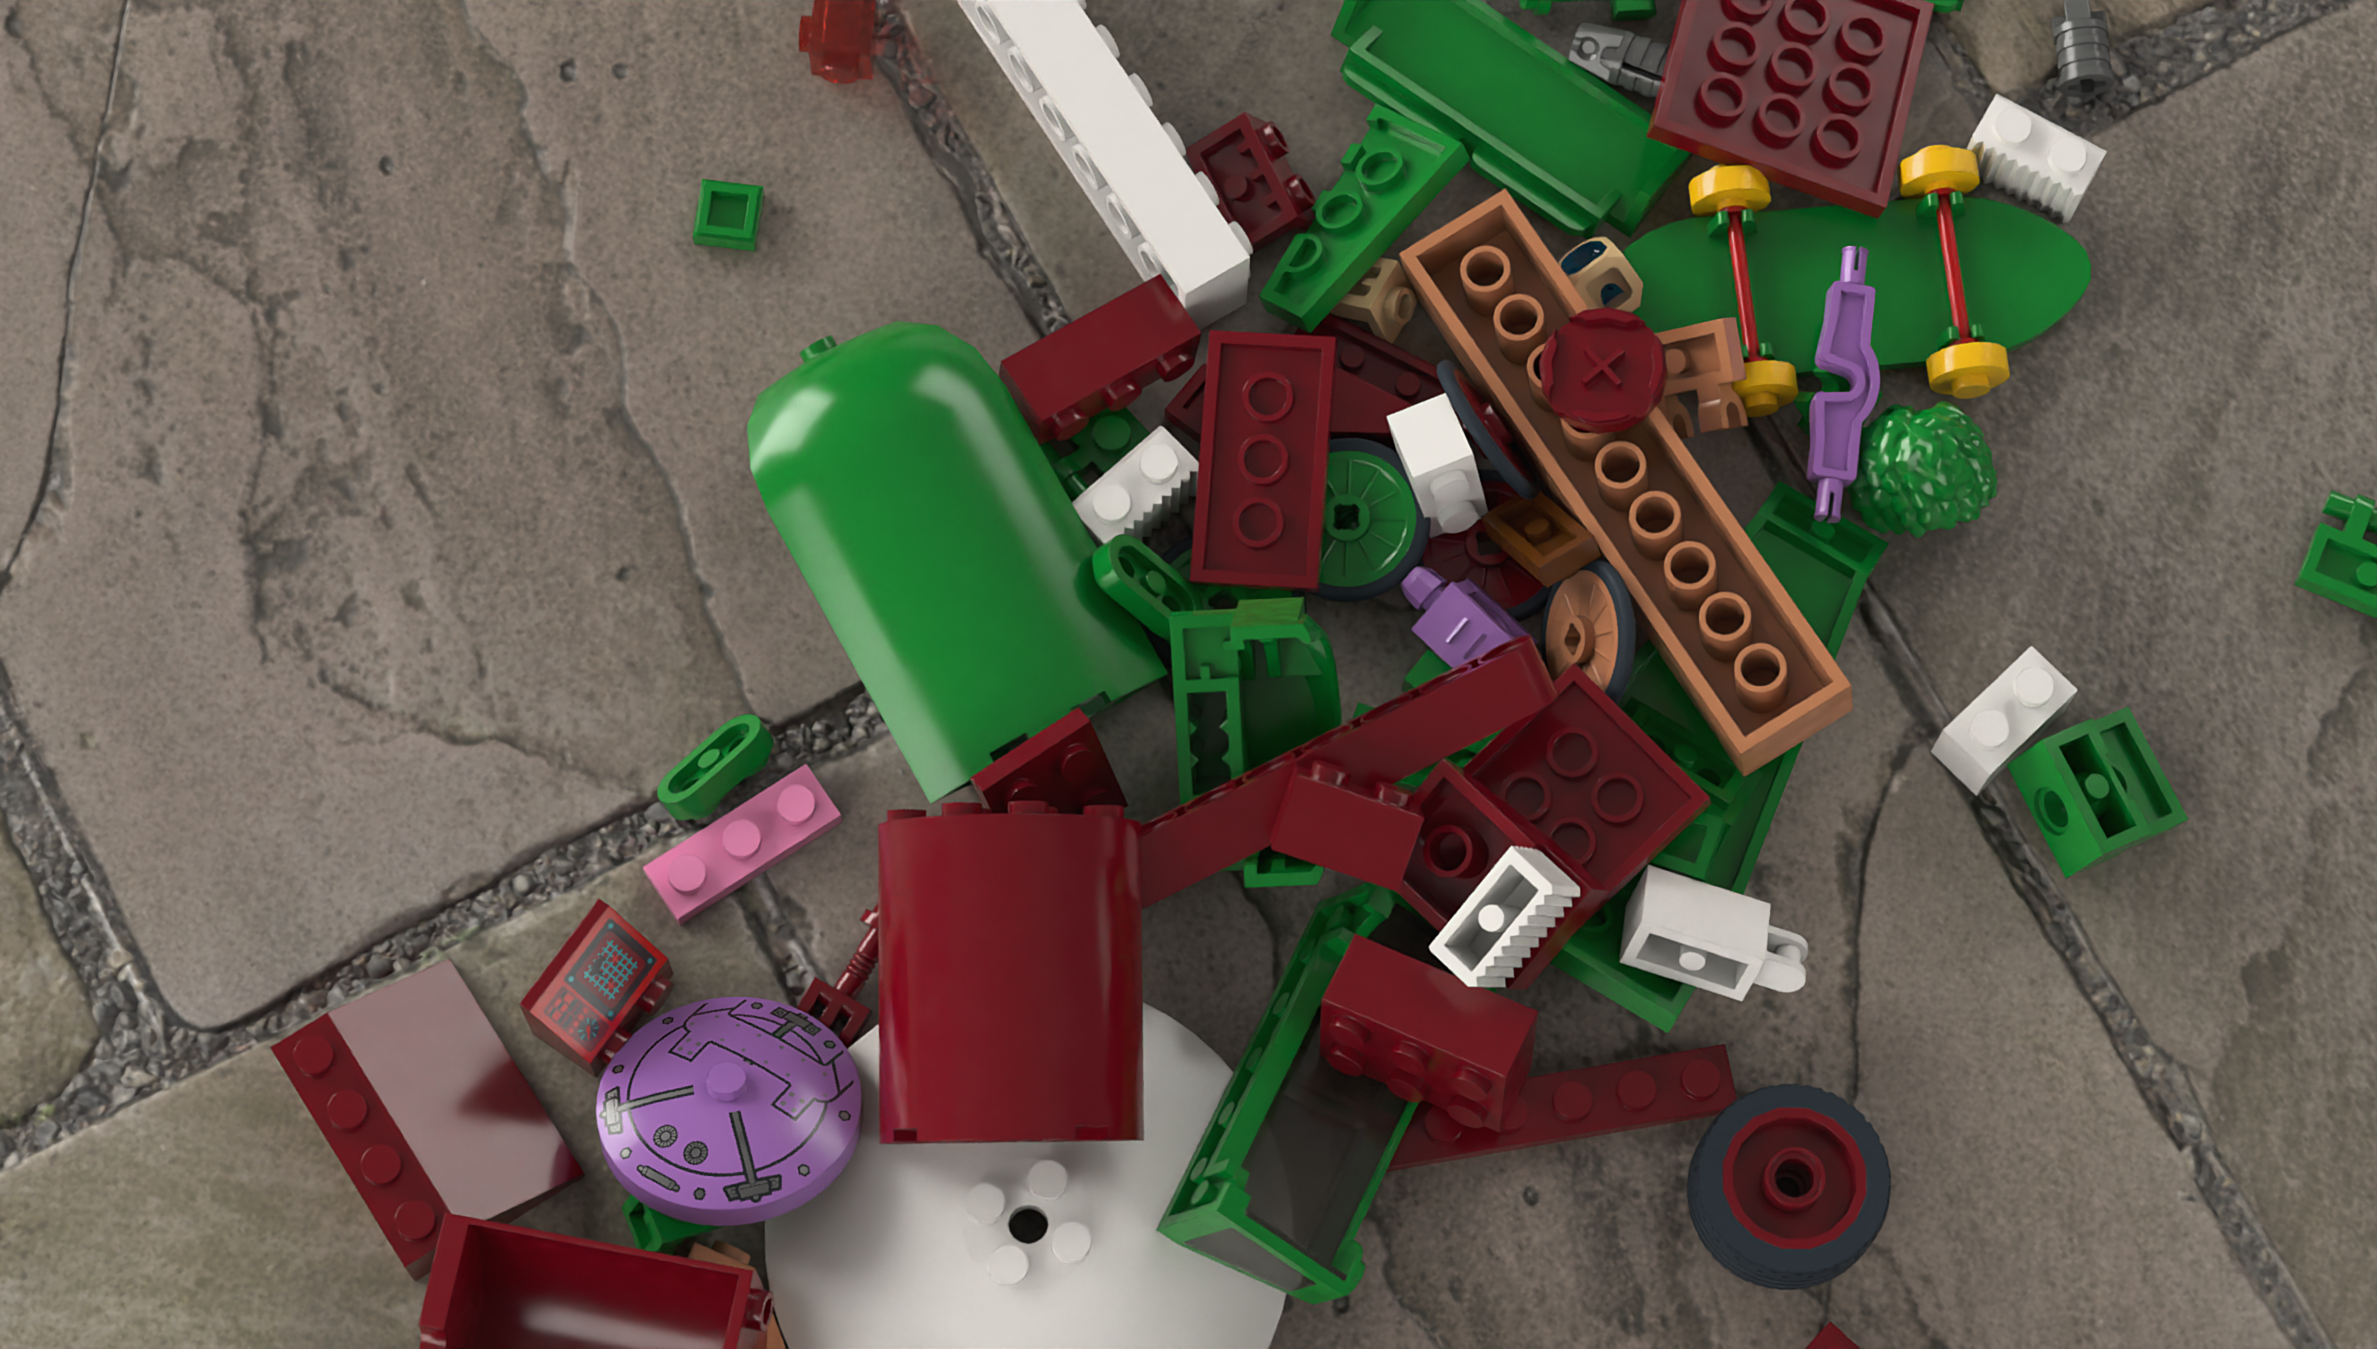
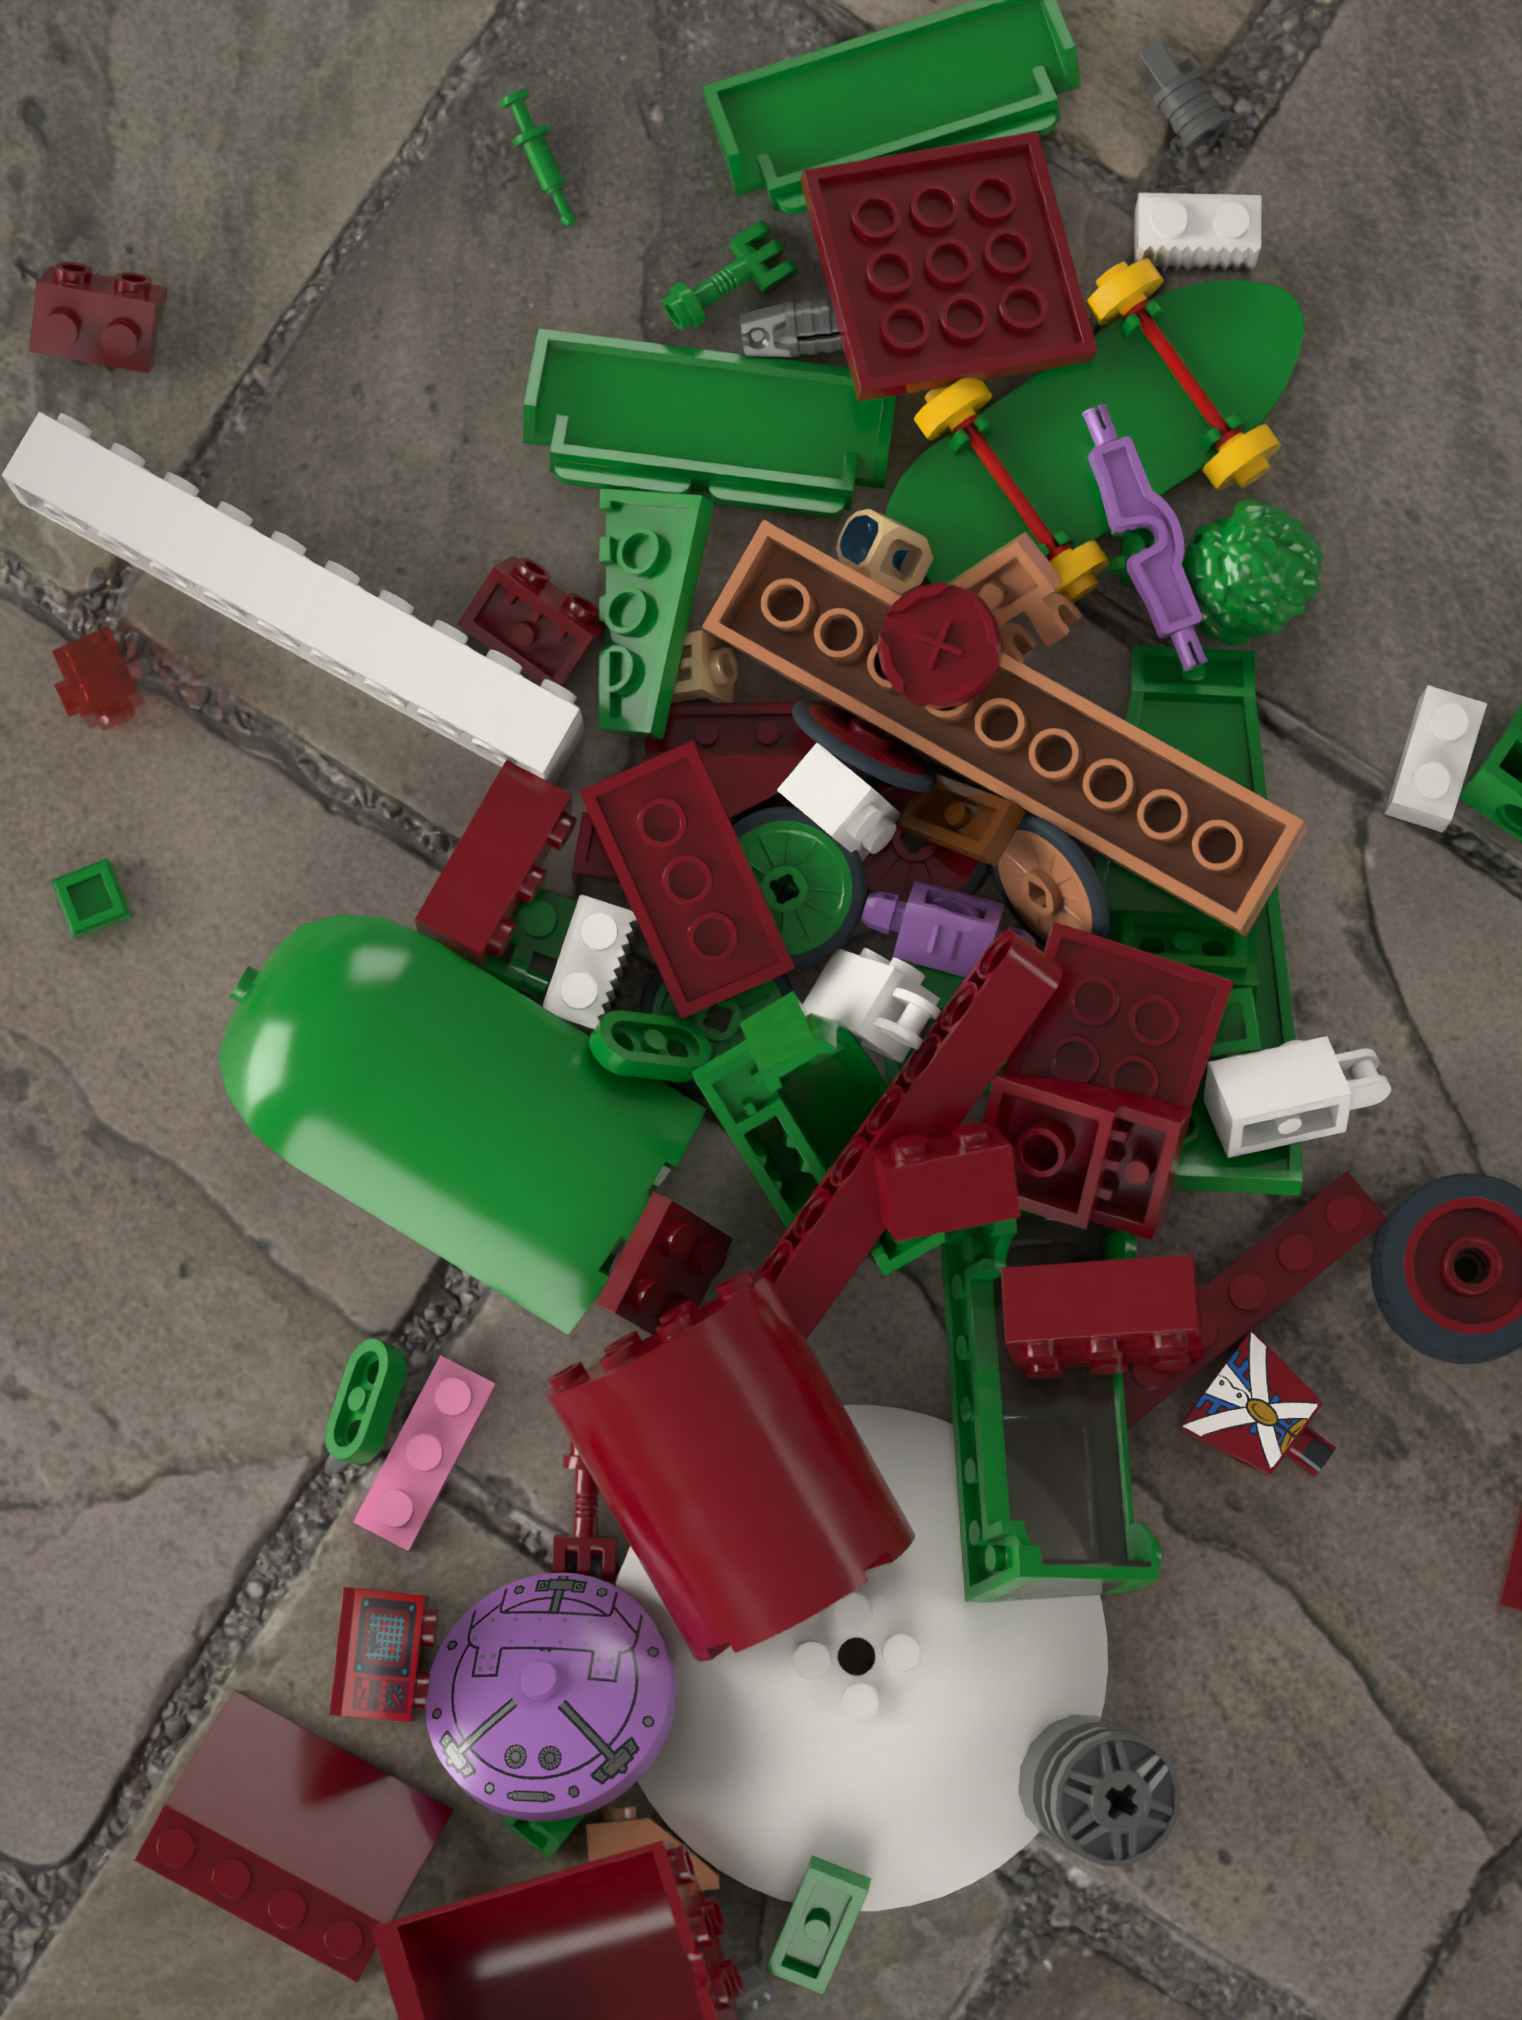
camera: 20 degrees left, 10 degrees up
(1376, 654) = (875, 1001): none -> white brick
(1504, 918) = (1123, 1191): white brick -> none
(1522, 1214) = (1258, 1413): none -> torso

